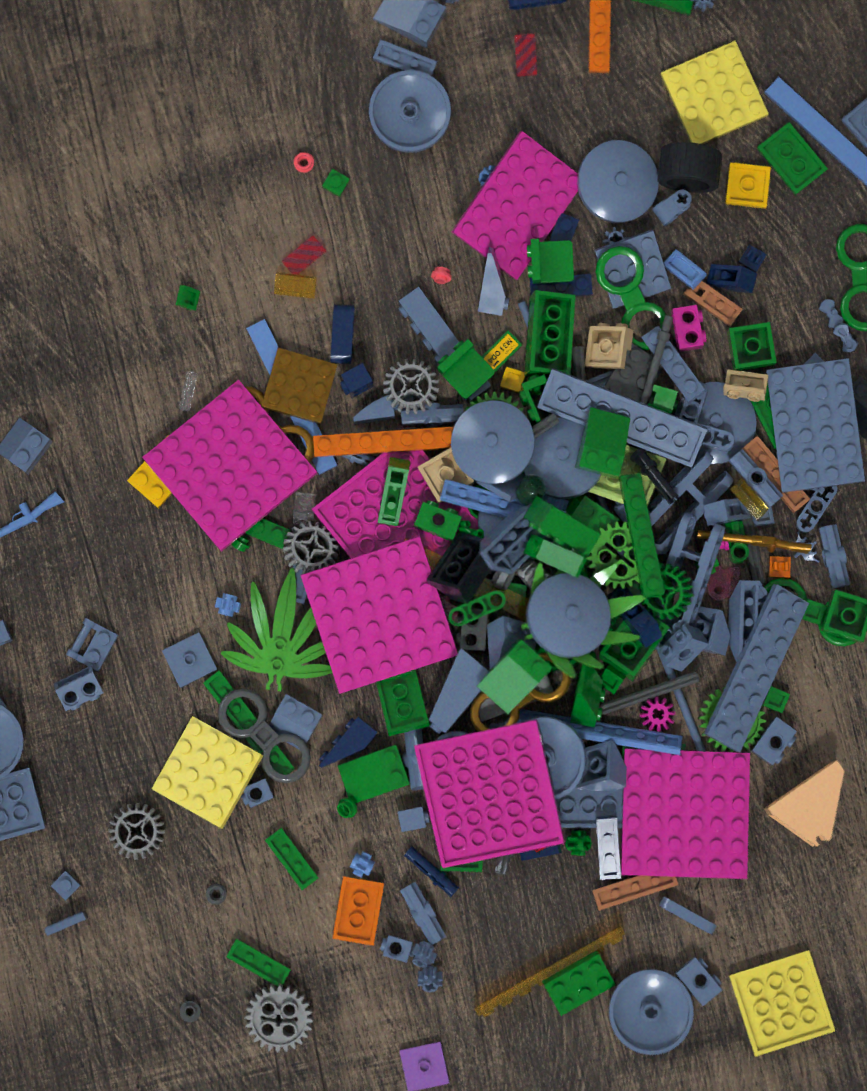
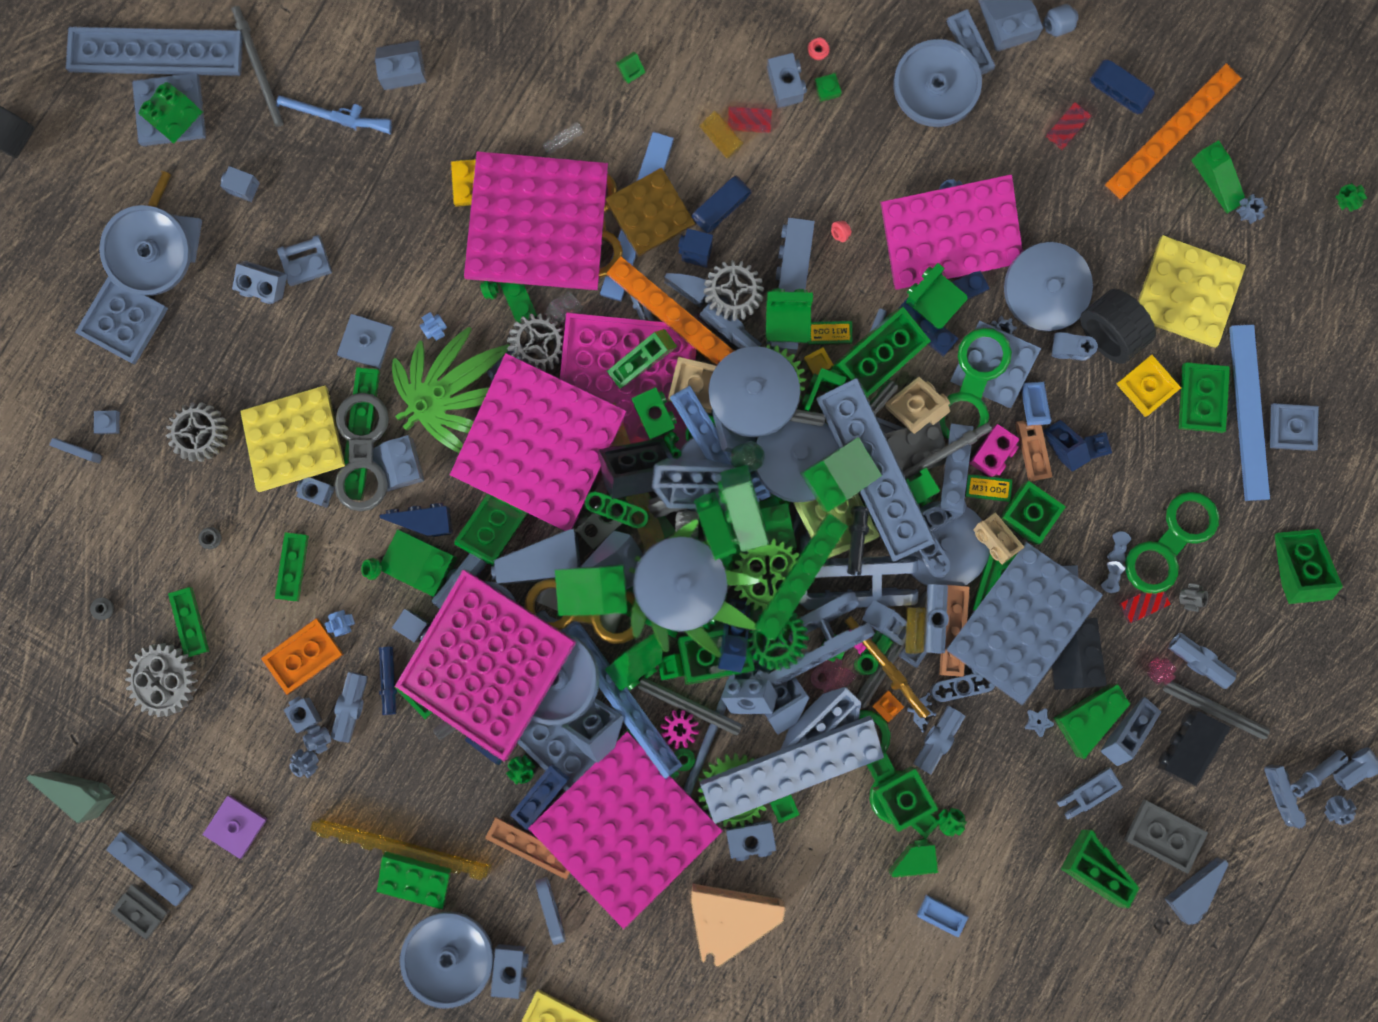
camera: 45 degrees right, 0 degrees up
(309, 216) = (784, 92): none -> sand blue brick
(493, 290) = (870, 277): sand blue slope -> none
(686, 732) = (689, 754): none -> green plate
(707, 356) = (988, 488): none -> tile

